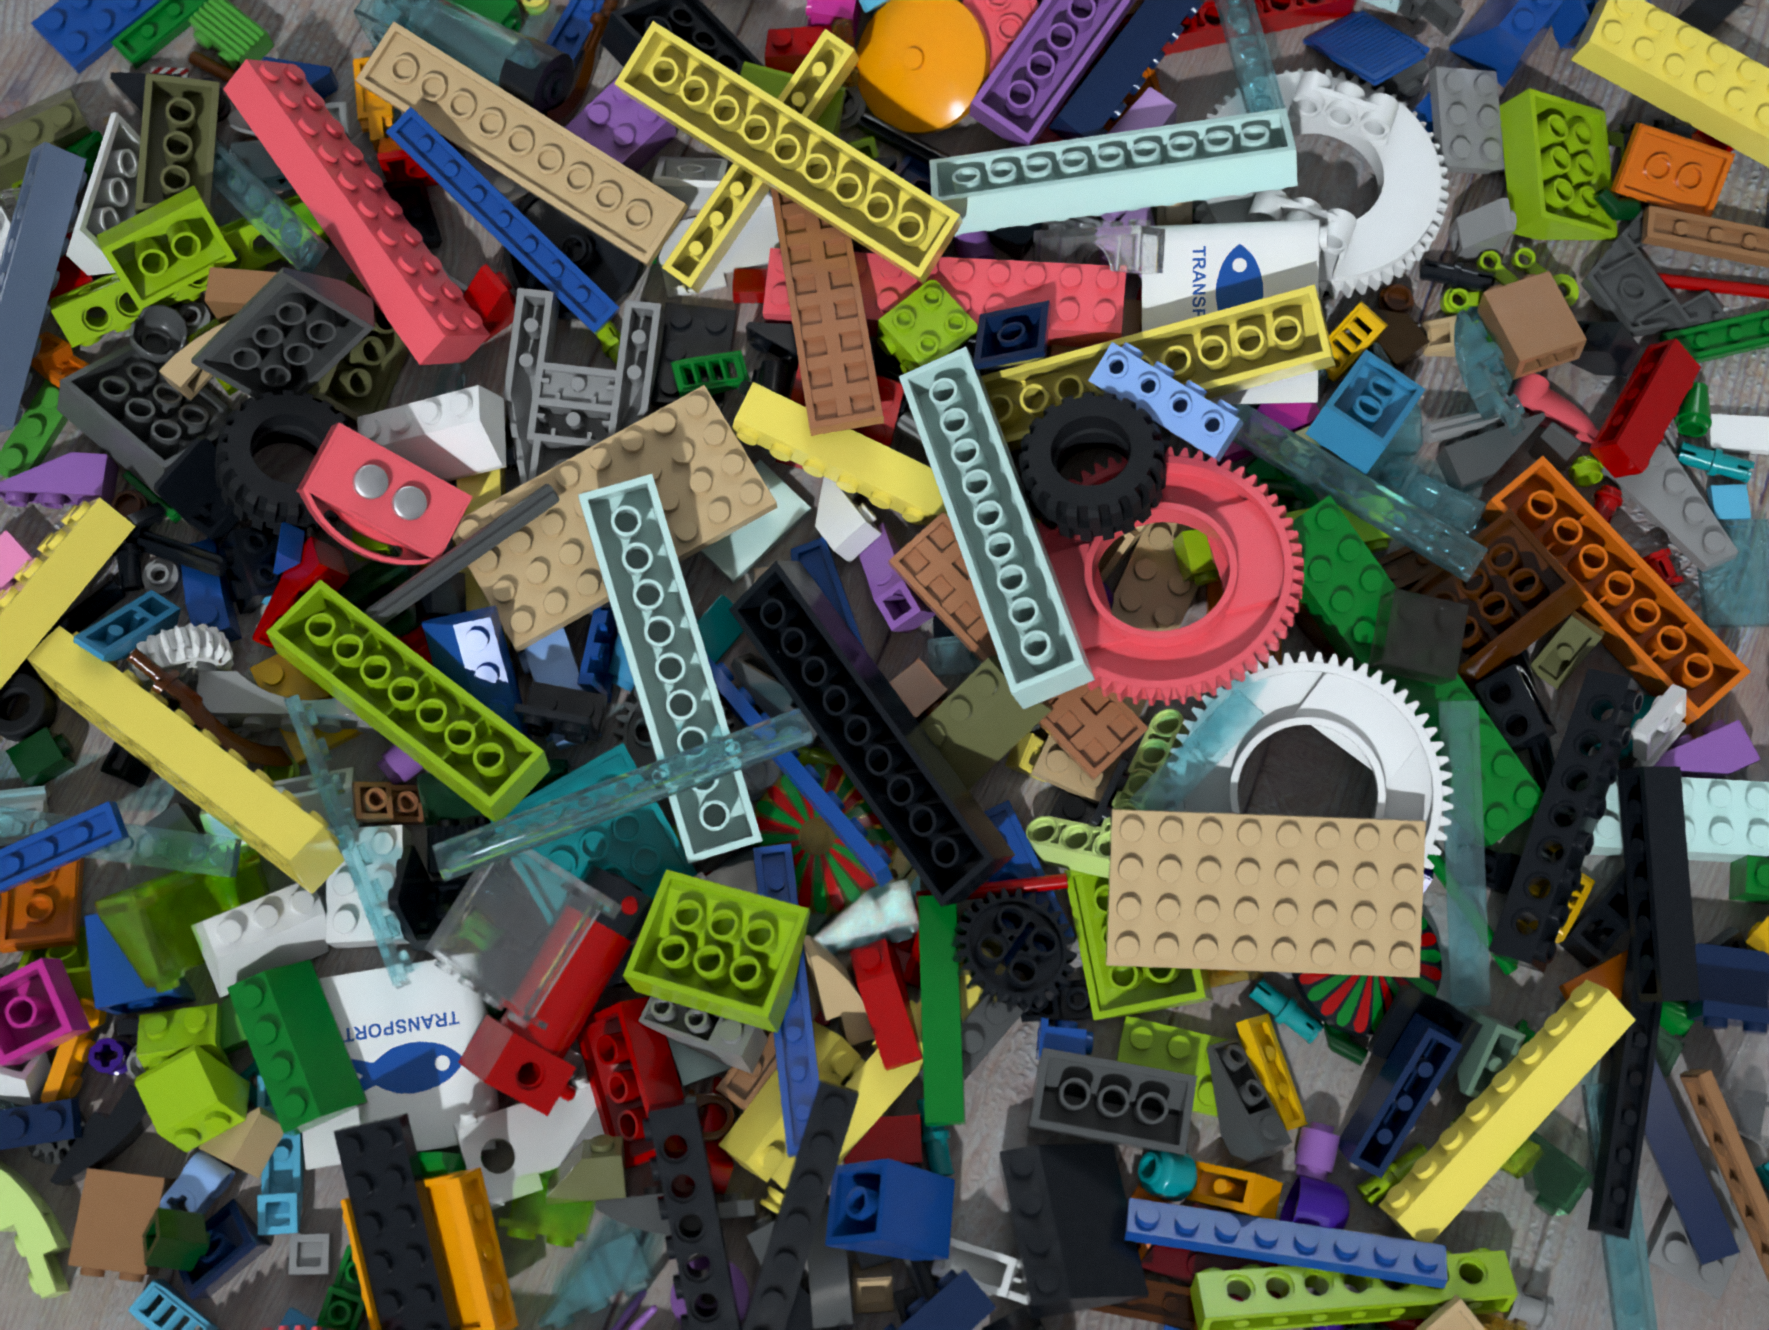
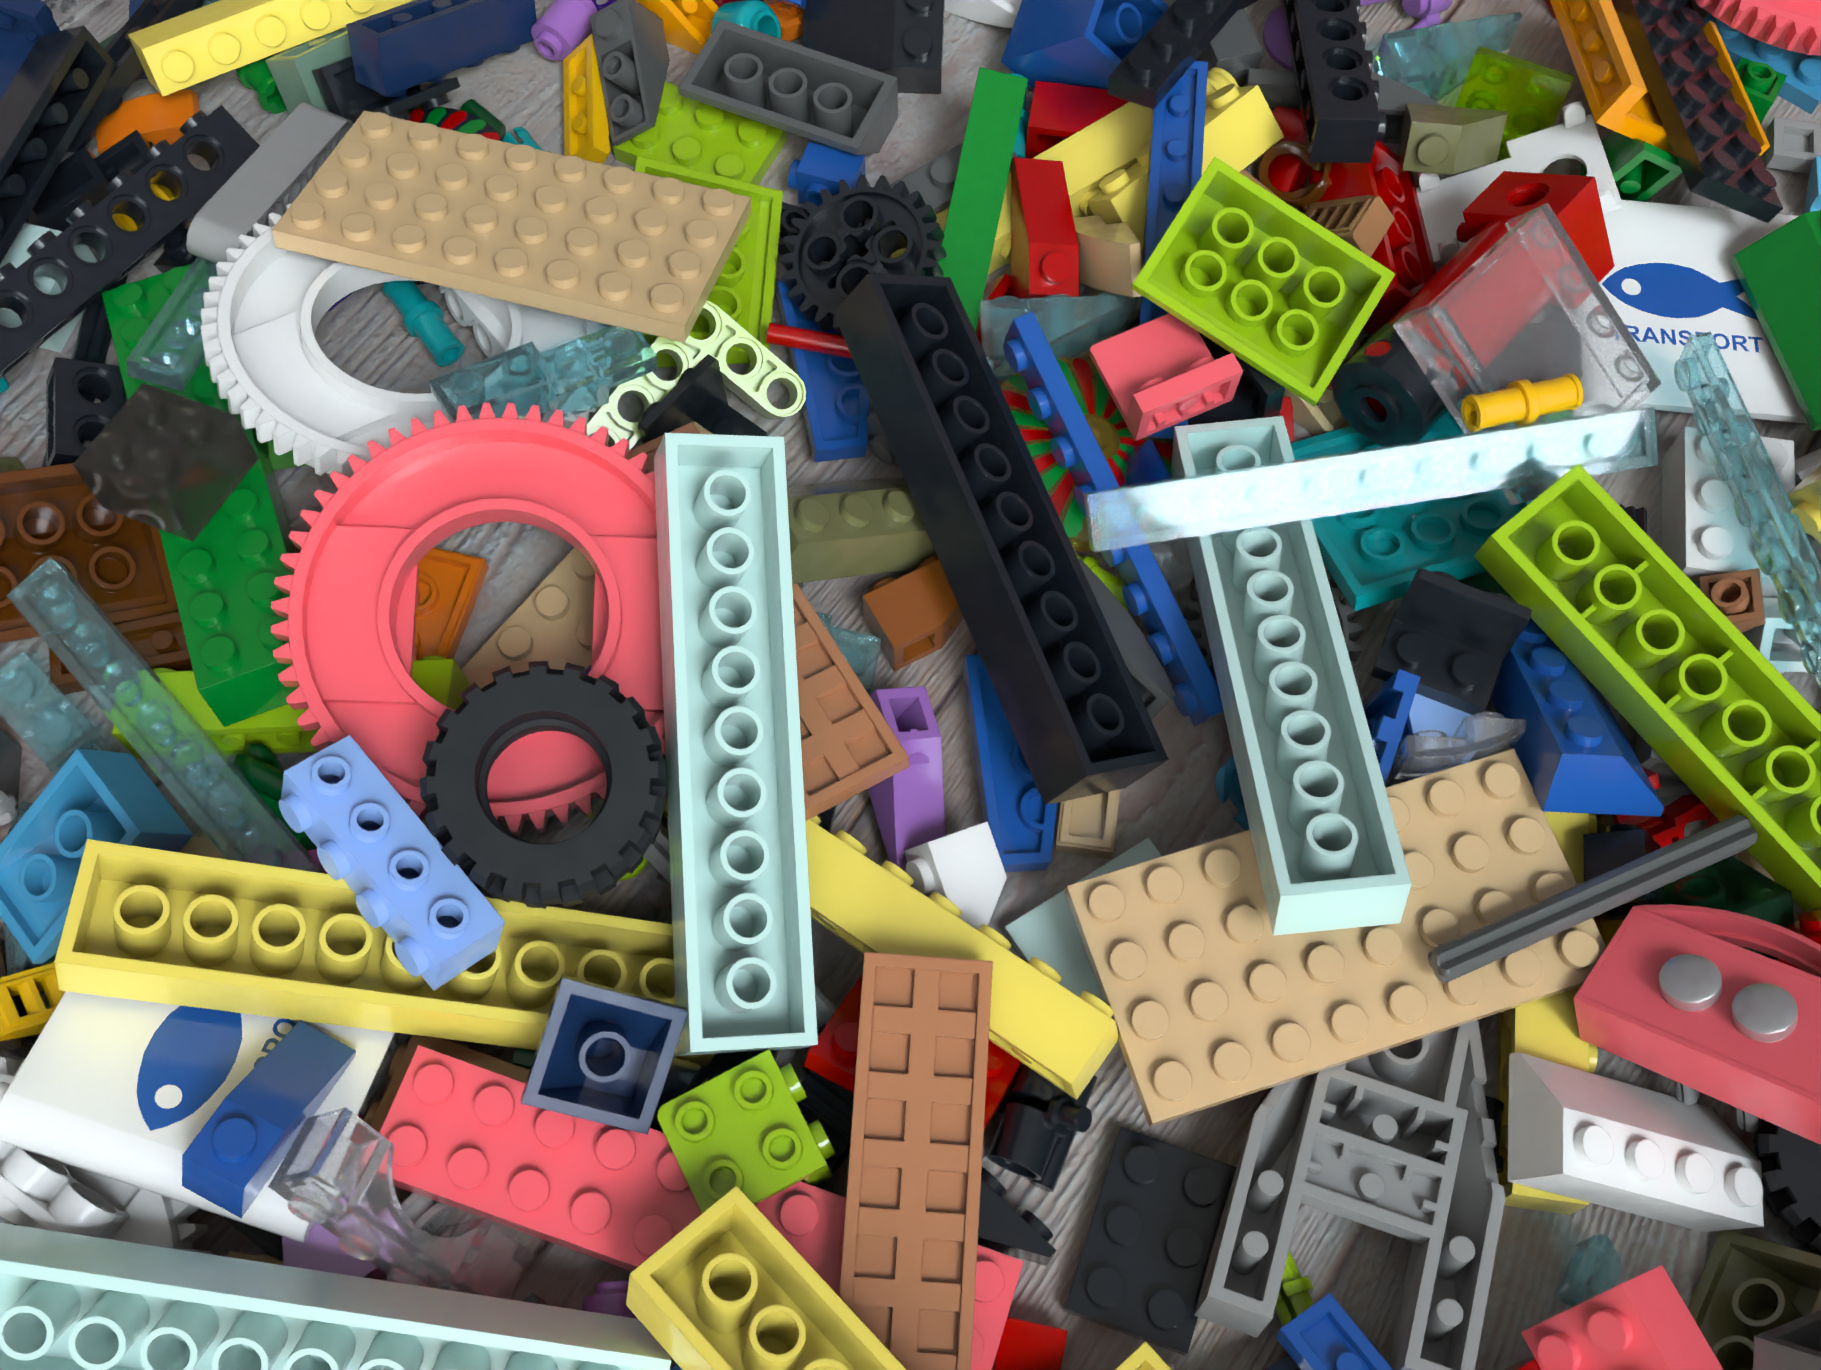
camera: 165 degrees left, 10 degrees down
(418, 900) = (1671, 488): black bracket -> none
(528, 860) = (1522, 402): none -> yellow pin
(536, 652) = (1474, 739): none -> clear slope
(641, 1053) = (1356, 220): none -> medium nougat slope
(696, 364) = (1182, 1146): green slope -> none
(718, 628) = (1188, 771): teal slope -> none
(776, 814) = (1145, 465): none -> clear blue tile
(776, 865) = (1163, 374): none -> coral bracket
(1181, 266) = (262, 1118): none -> blue slope
(1462, 906) = (266, 181): none -> light grey beam

